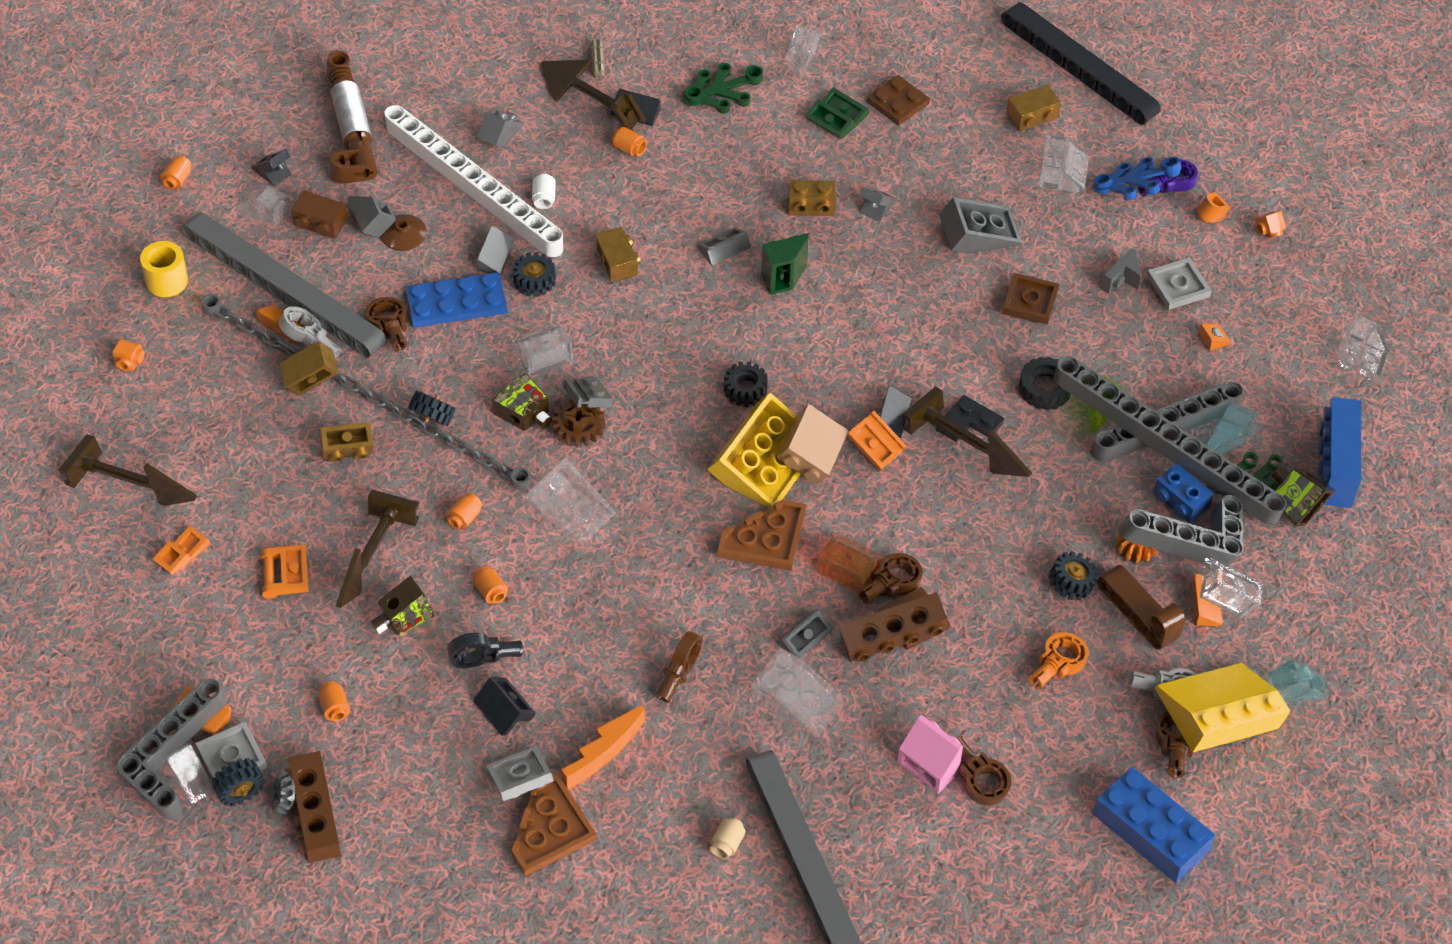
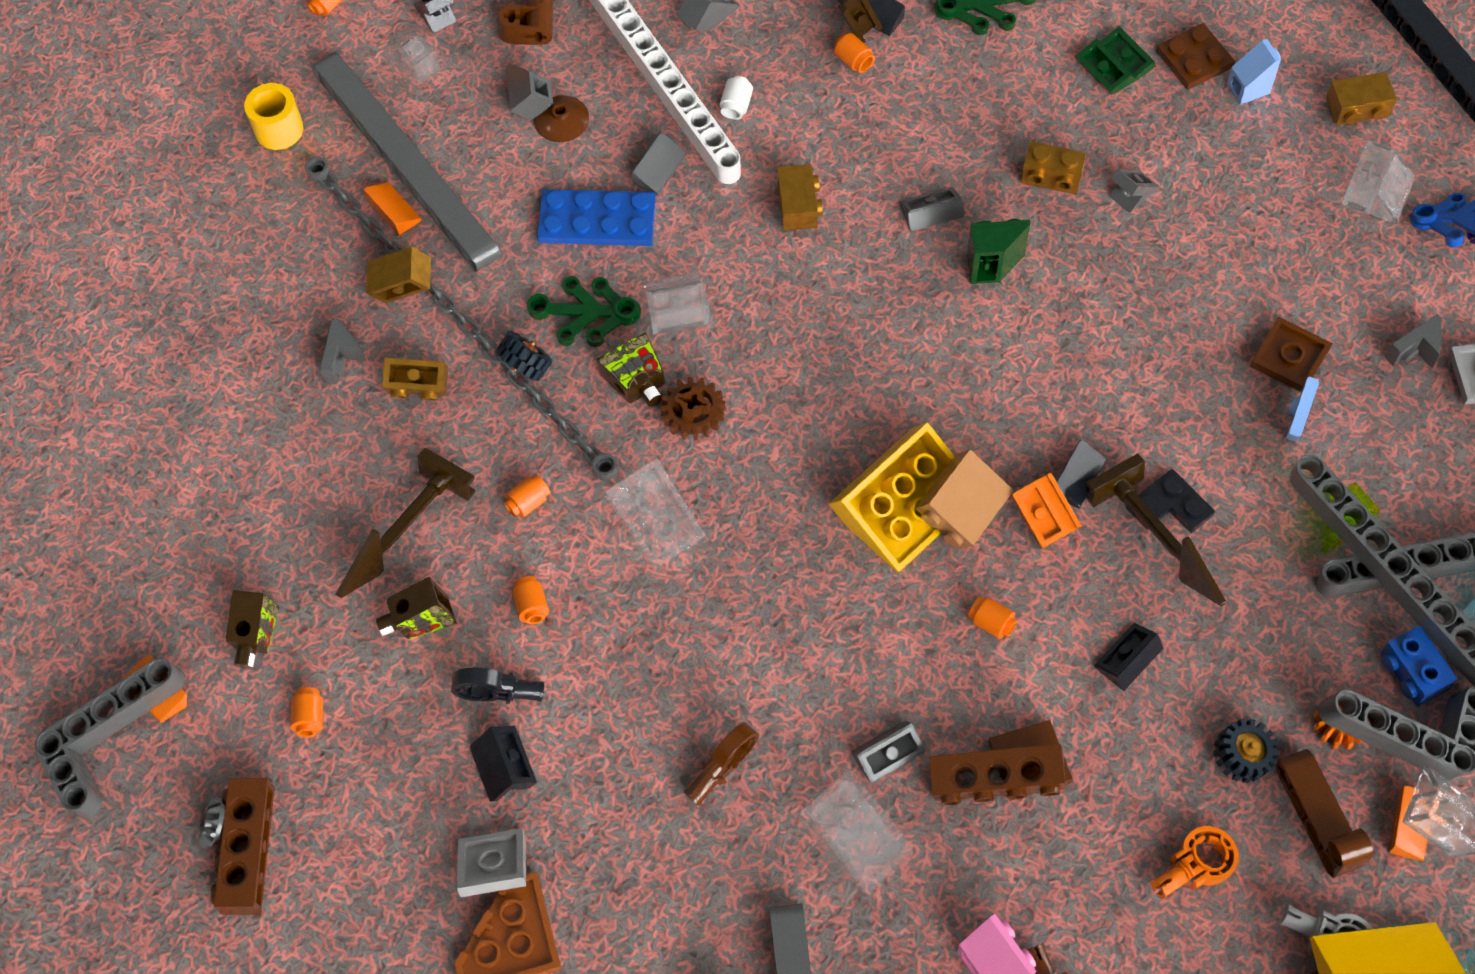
camera: 20 degrees right, 10 degrees up
(85, 460) = (119, 339): dark brown piece -> none
(127, 355) = (206, 215): orange plate -> none
(182, 551) = (191, 478): orange slope -> none
(189, 774) = (116, 769): clear slope -> none
(228, 747) = (172, 754): light grey plate -> none
(238, 782) = (164, 795): black wheel -> none
(268, 646) = (250, 625): none -> dark brown torso
(276, 431) = (339, 346): none -> dark grey slope
(293, 570) = (310, 530): orange plate -> none
(310, 333) = (417, 233): light grey pin -> none
(319, 214) = (468, 80): reddish brown brick -> none
(390, 324) = (510, 233): reddish brown pin -> none
(470, 369) = (588, 310): none -> dark green plant
(534, 274) = (694, 204): black wheel -> none
(588, 392) = (713, 373): dark grey plate -> none
(610, 741) = (615, 841): orange slope -> none
(749, 373) = (911, 383): black tyre -> none
(766, 537) = (876, 608): dark orange plate -> none
(848, 562) = (970, 666): clear orange slope -> none
(857, 524) = (992, 617): none -> orange brick
(886, 582) = (1008, 706): reddish brown pin -> none
(948, 102) = (1254, 72): none -> light blue slope
(968, 531) = (1129, 655): none -> black slope
(978, 226) = (1251, 244): dark grey slope -> none
(1036, 396) = (1258, 484): black tyre -> none
(1048, 332) = (1300, 409): none -> light blue plate

